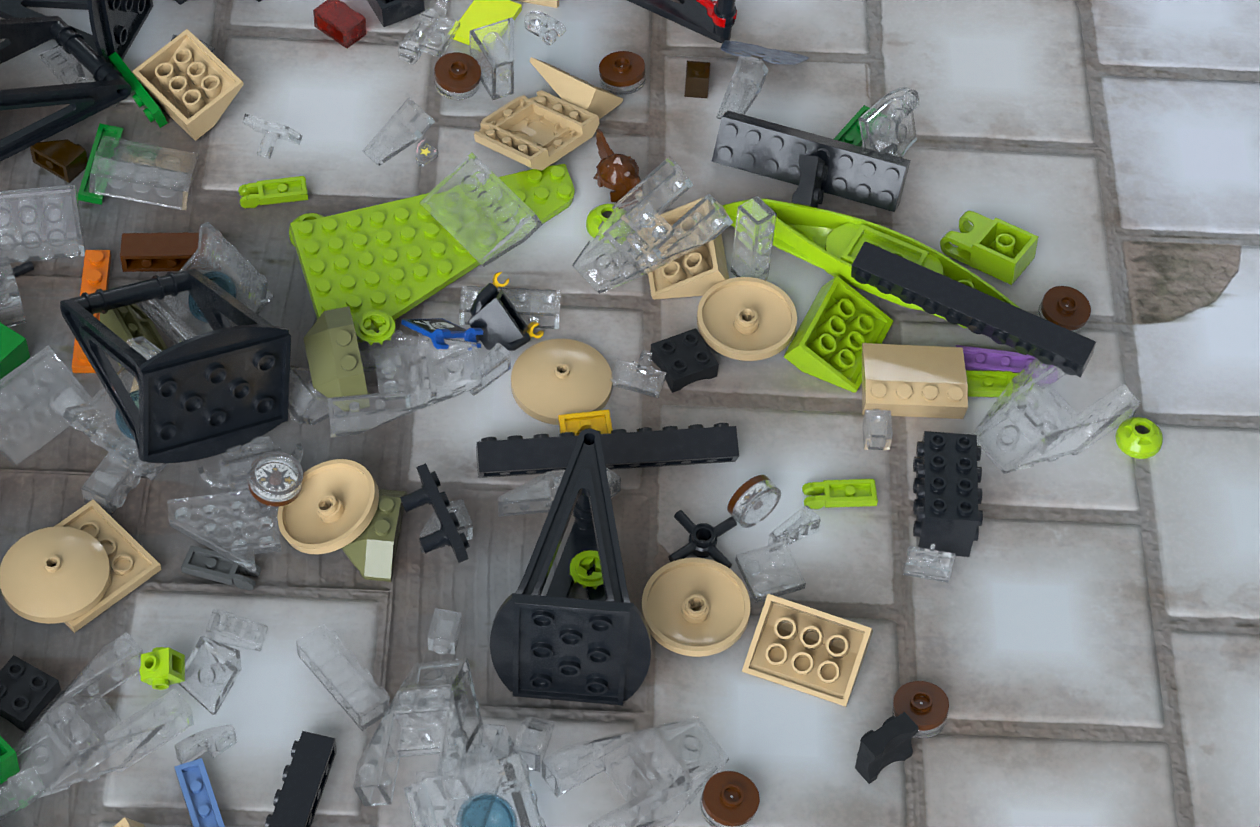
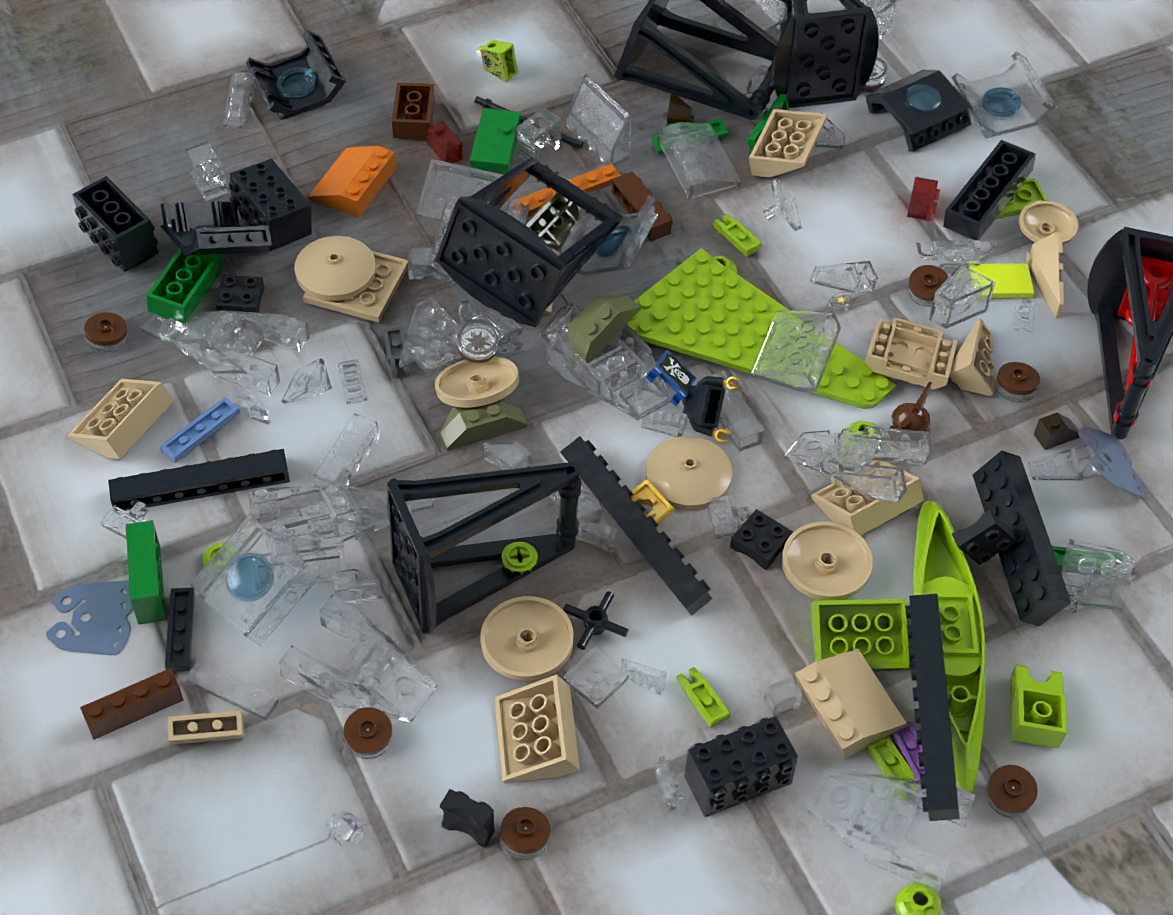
camera: 65 degrees right, 0 degrees up
(162, 667) = (294, 354): lime brick -> none
(381, 321) = (640, 327): lime gear -> none
(430, 495) = (496, 450): black plate -> none
(753, 239) = (890, 524): clear brick -> none
(754, 501) = (647, 635): clear piece -> none

